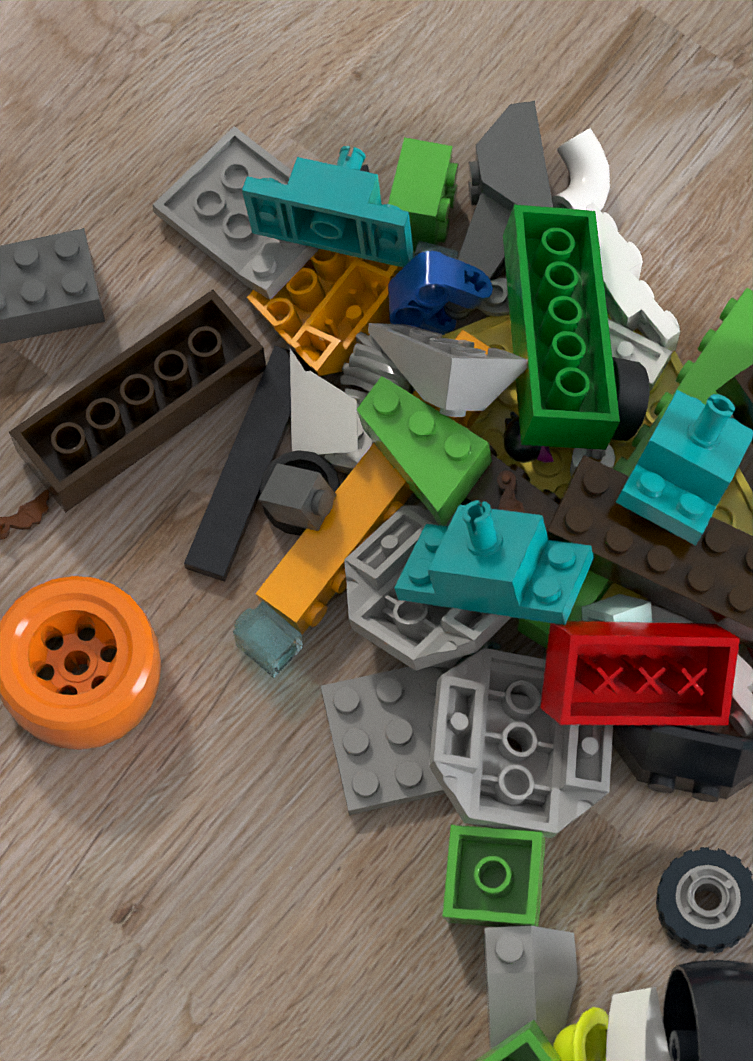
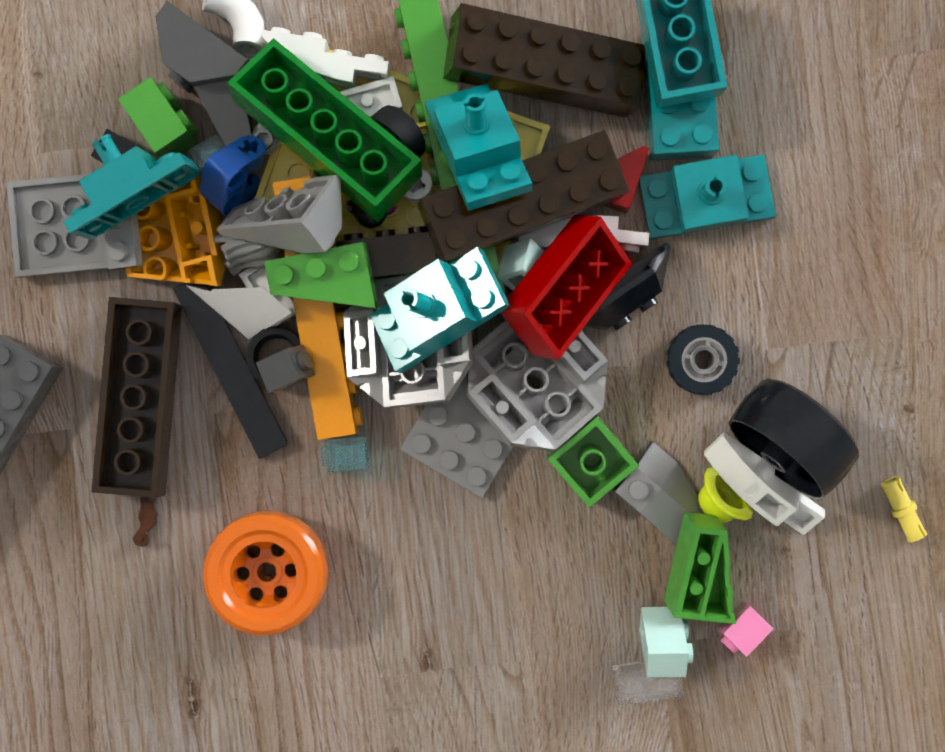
camera: 50 degrees left, 20 degrees up
(507, 482) = (404, 260): reddish brown piece -> none

